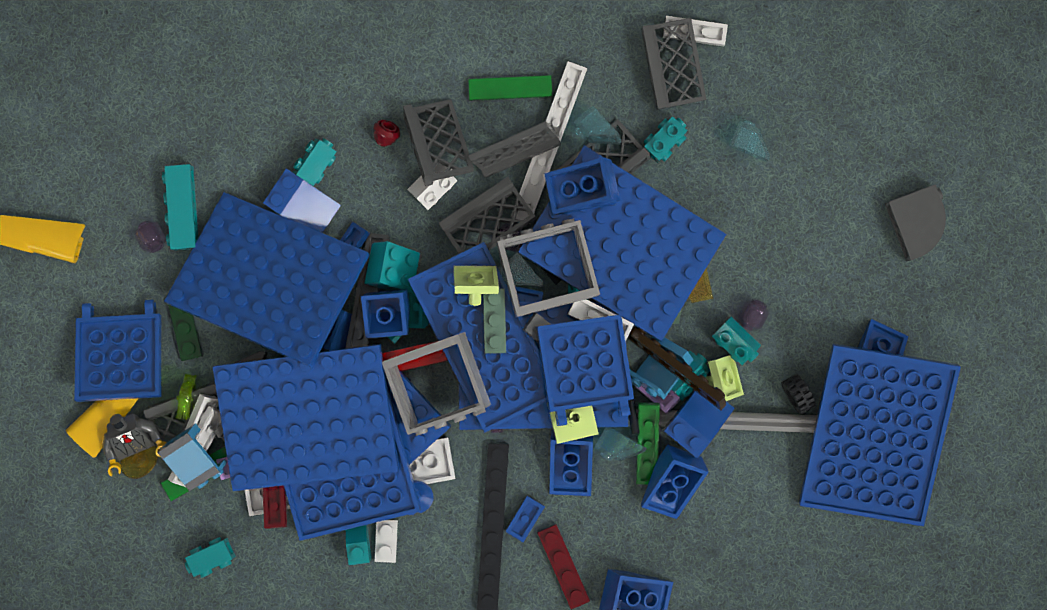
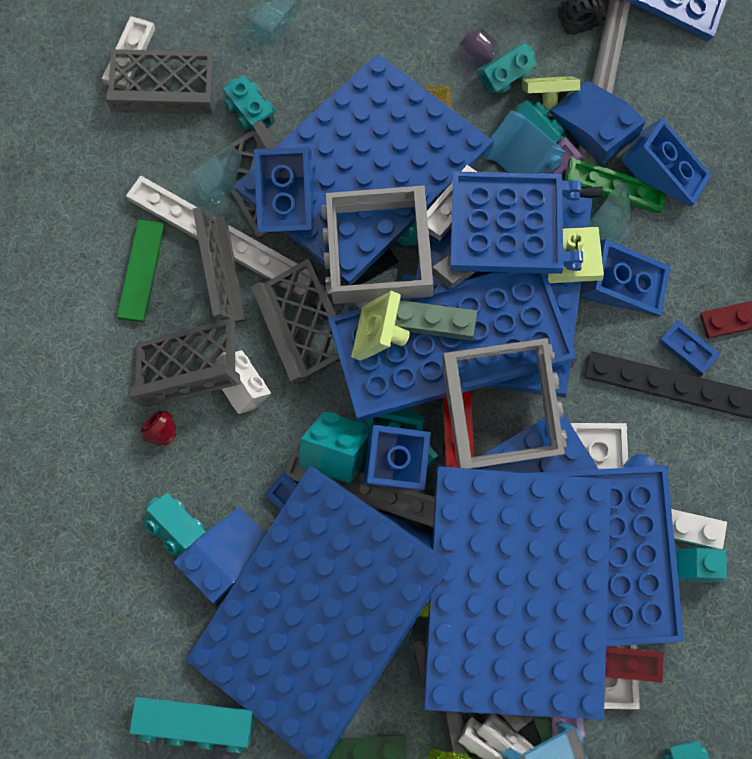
camera: 75 degrees left, 15 degrees down
(680, 370) = (535, 120): dark brown plate -> none

